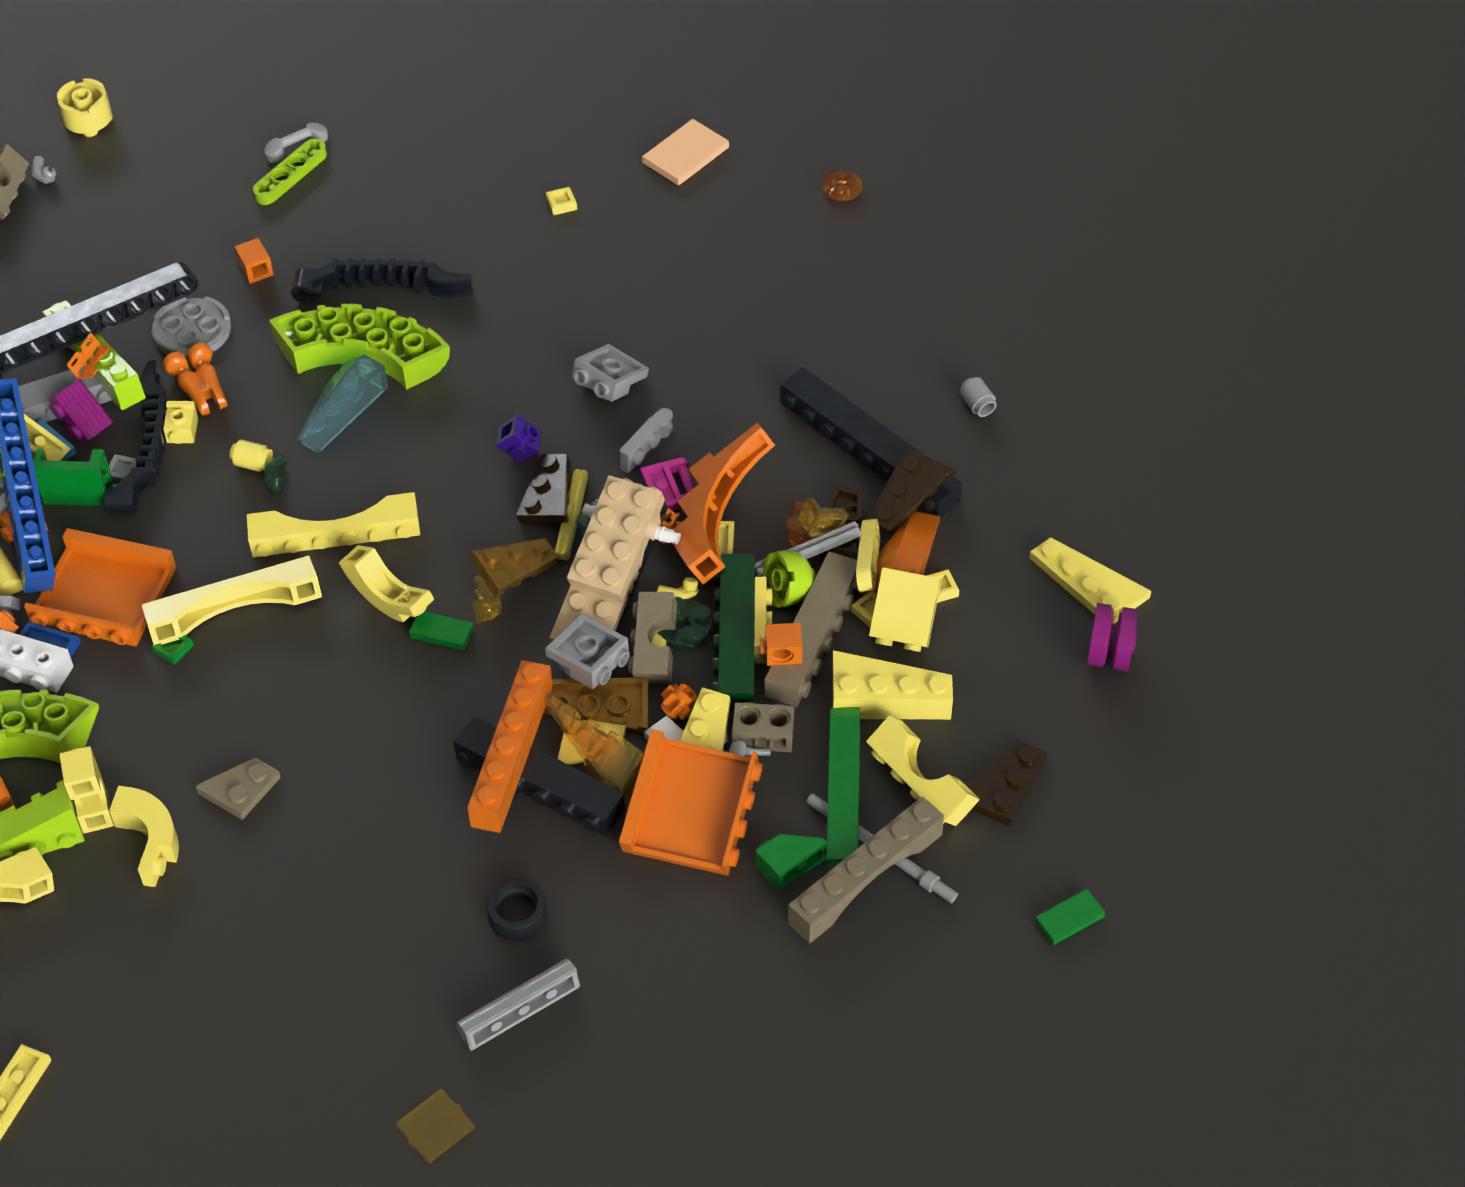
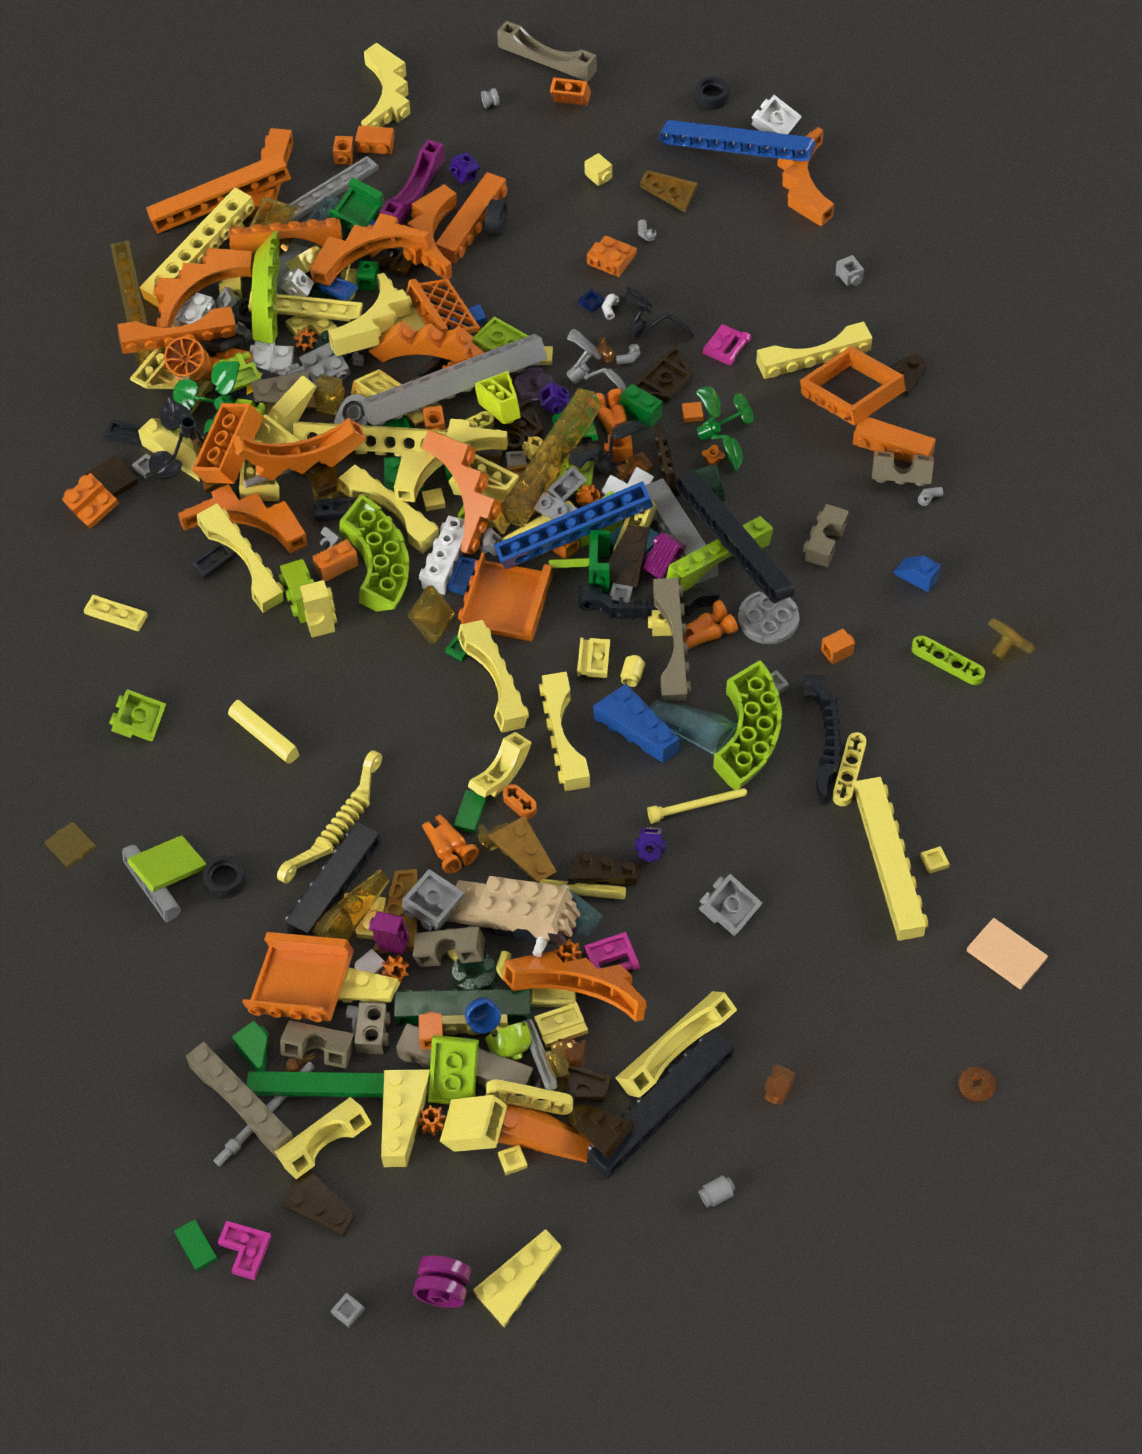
camera: 90 degrees right, 5 degrees up
(59, 517) = (570, 562): none -> lime tile
(65, 441) = (629, 556): none -> dark brown wing
(84, 106) = (998, 508): light yellow brick -> none
(86, 352) = (693, 541): orange piece -> none
(98, 270) = (830, 522): none -> dark tan arch
(116, 668) = (431, 614): none -> clear yellow tile
(146, 813) = (303, 658): light yellow arch -> none
(157, 183) = (919, 571): none -> blue slope
(165, 396) = (667, 601): none -> dark tan arch
(221, 496) = (593, 657): none -> light yellow plate
(221, 1039) = (137, 715): none -> lime plate
(240, 787) = (336, 704): dark tan wing -> none
(271, 471) = (612, 686): clear green arm -> none
(275, 147) = (997, 671): light grey bar -> none
(276, 109) = (1009, 638): none -> clear yellow tile
(277, 870) = (263, 732): none -> light yellow brick
(335, 449) = (631, 717): none -> blue wedge
(431, 760) = (340, 825): none -> light yellow piece
(435, 579) = (522, 799): none -> orange beam
(455, 263) = (851, 769): none -> light yellow beam
(470, 438) = (657, 813): none -> light yellow piece
(492, 649) = (448, 840): none -> orange piece
(493, 976) = (167, 863): none -> lime tile
(510, 747) = (341, 852): orange brick -> none
(557, 232) = (890, 858): none -> light yellow brick
(638, 689) = (389, 932): none -> magenta brick
(646, 438) = (658, 935): light grey hinge -> none
(759, 392) = (649, 1065): none -> light yellow arch
(762, 533) = (561, 1024): none -> light yellow plate
(763, 589) = (482, 1015): none -> blue hair
(778, 803) = (302, 1037): none -> dark tan arch
(811, 817) = (293, 1063): none -> clear orange hand
(833, 622) = (452, 1069): none -> lime tile
(846, 338) = (779, 1084): none -> clear orange brick
(895, 654) = (431, 1113): none -> orange gear
(1069, 850) = (251, 1246): none -> dark pink plate
(1143, 748) = (347, 1310): none -> light grey tile

